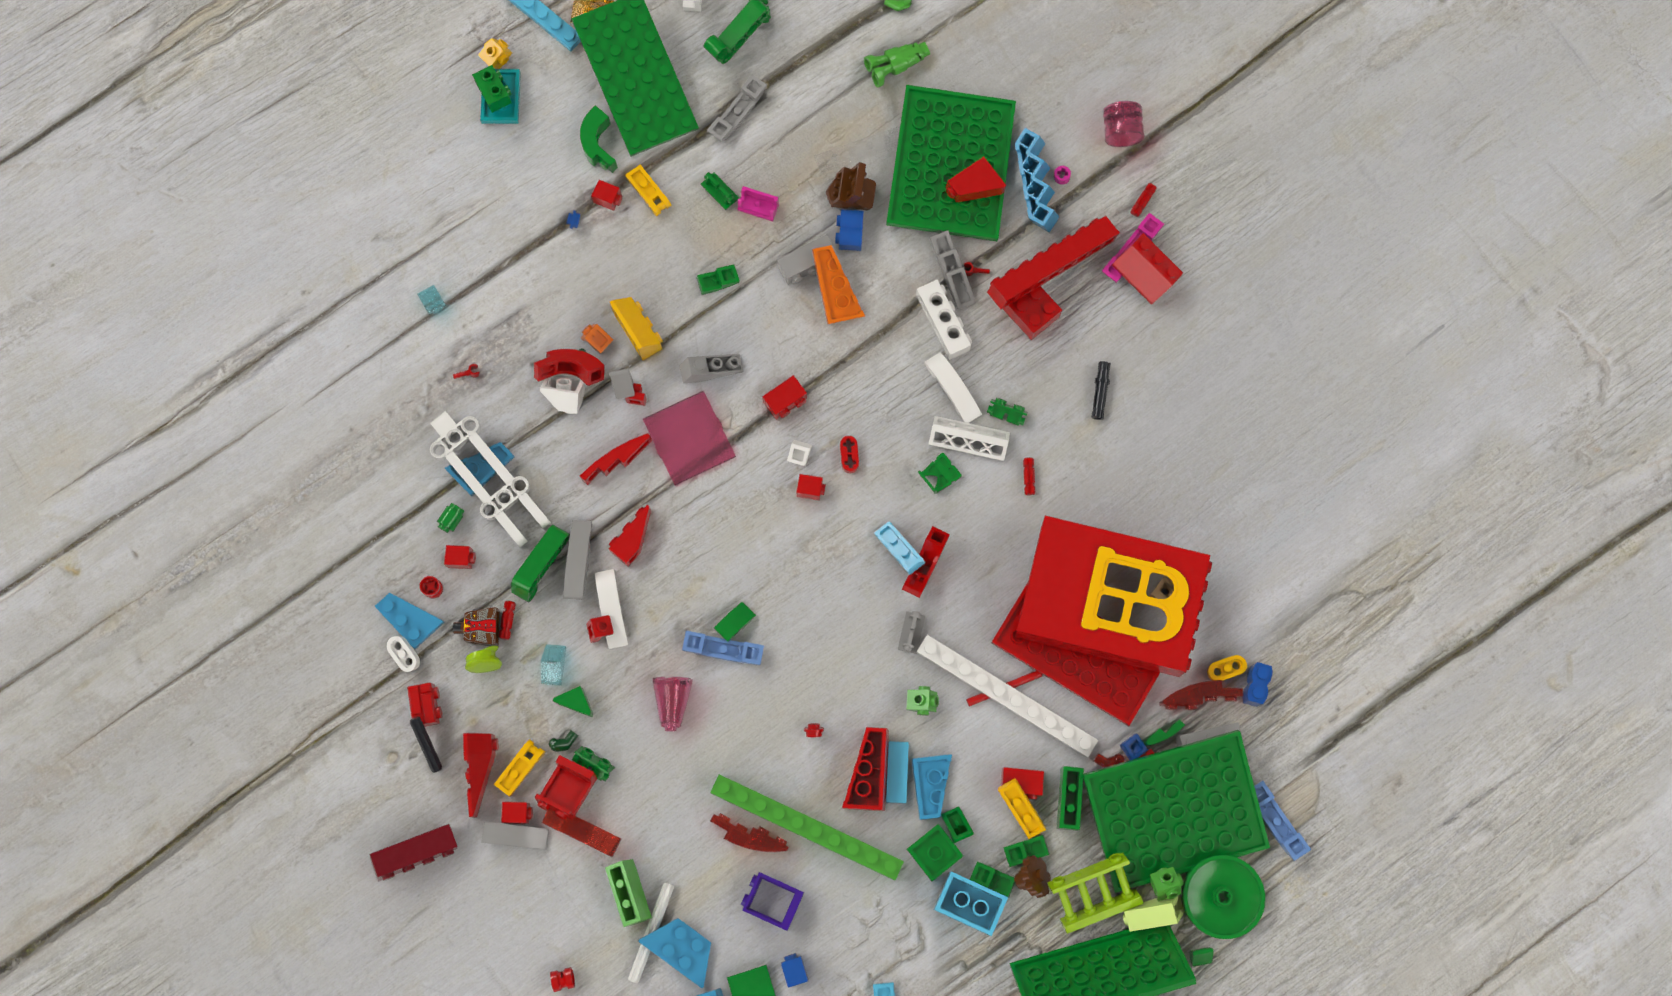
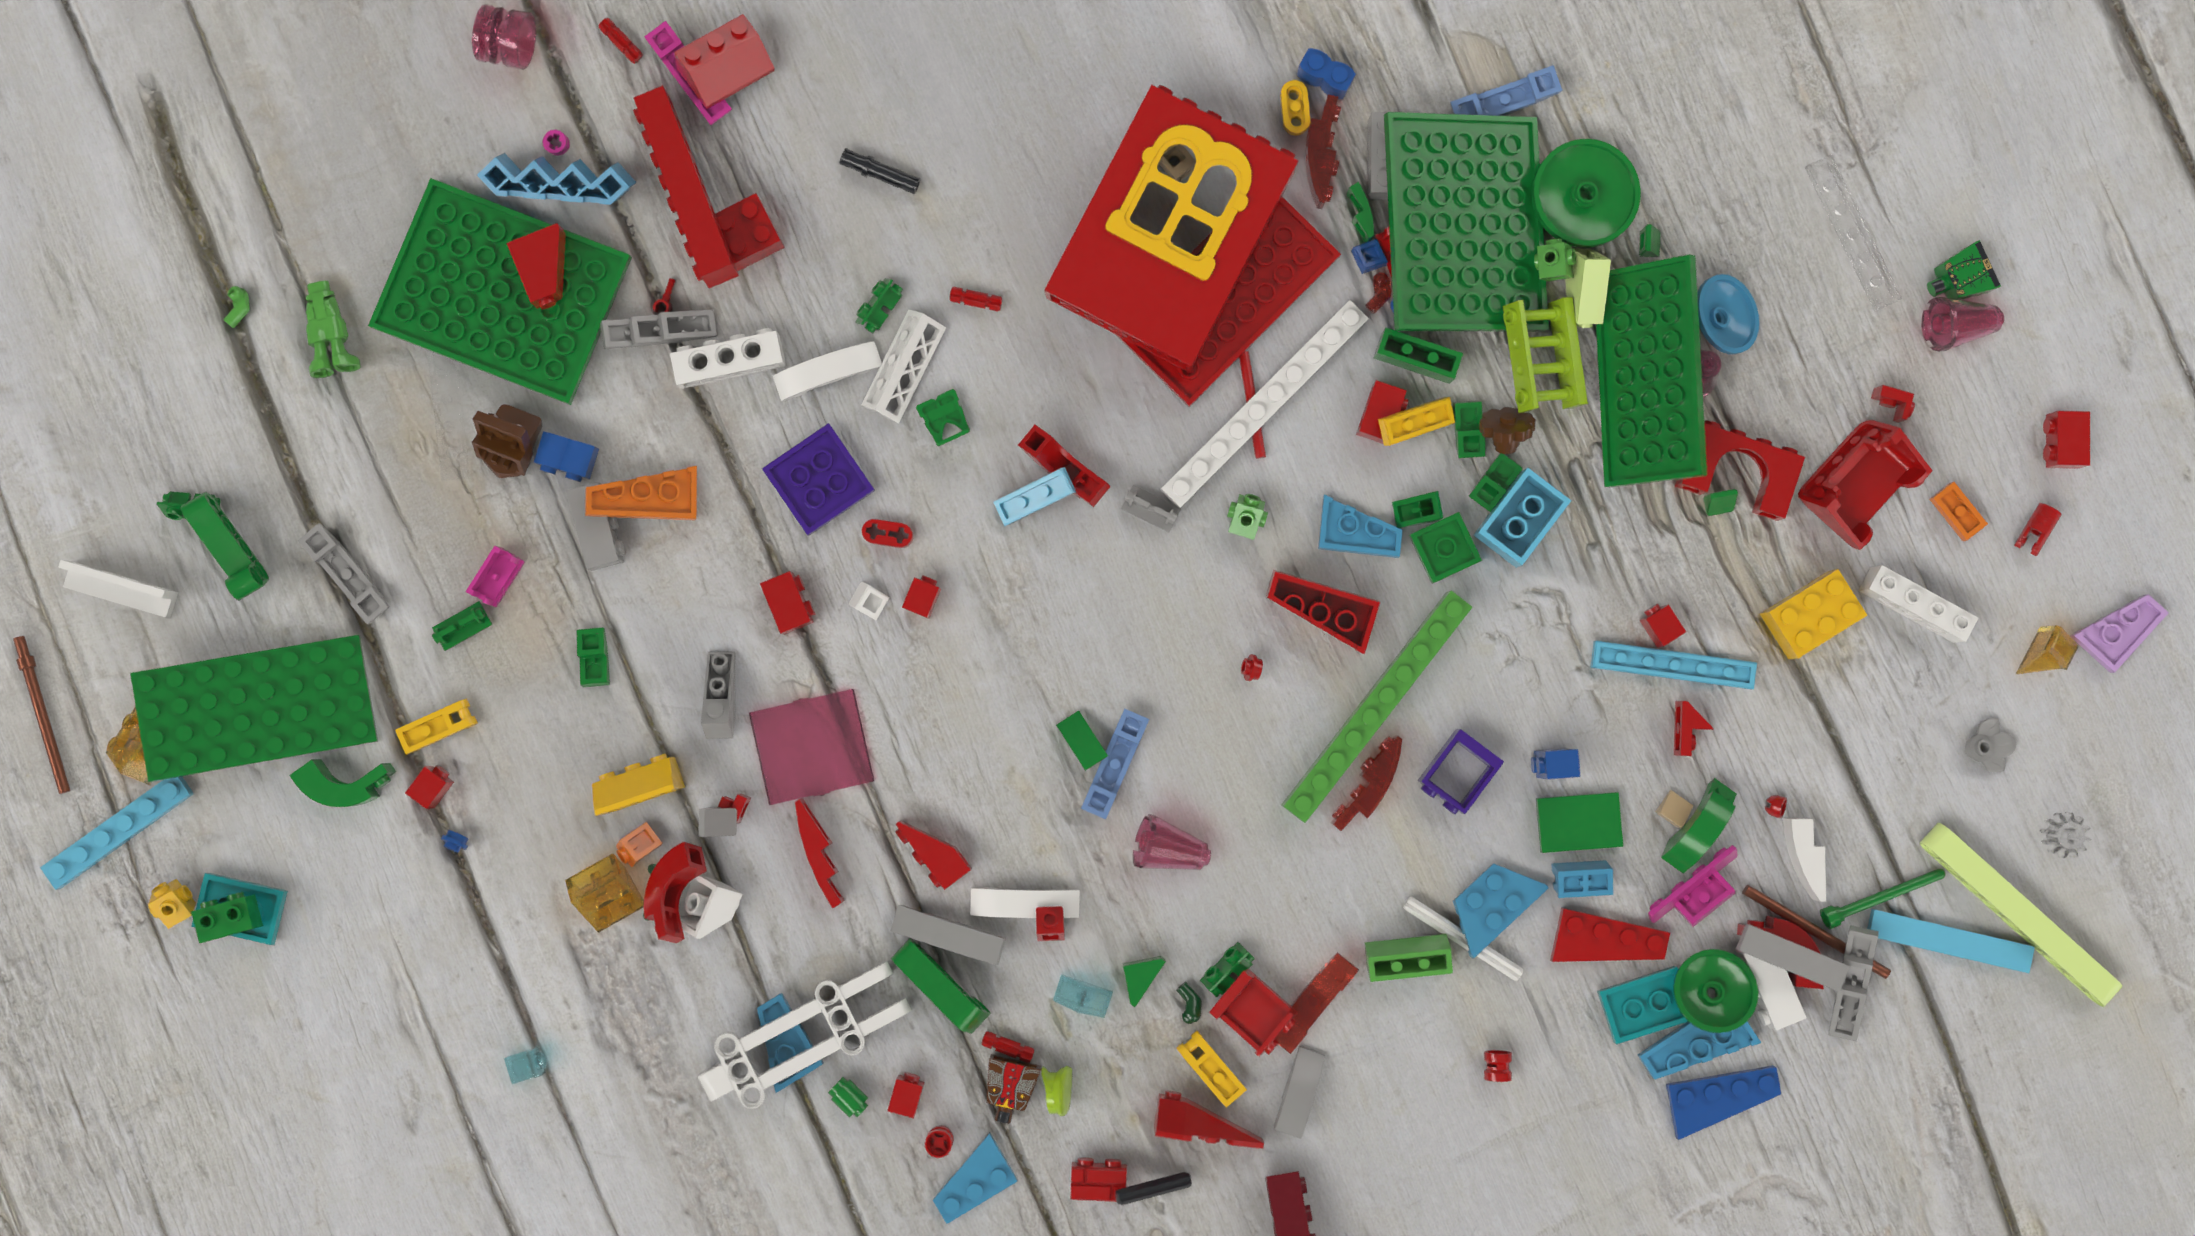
camera: 75 degrees left, 10 degrees up
(404, 654) = (1023, 1197): white plate -> none
(468, 372) = (644, 1034): red hand -> none
(516, 812) = (1270, 1084): red brick -> none
(558, 323) = (604, 893): none -> clear yellow slope
(875, 399) = (818, 479): none -> dark purple plate
(897, 772) = (1330, 571): medium azure tile -> none

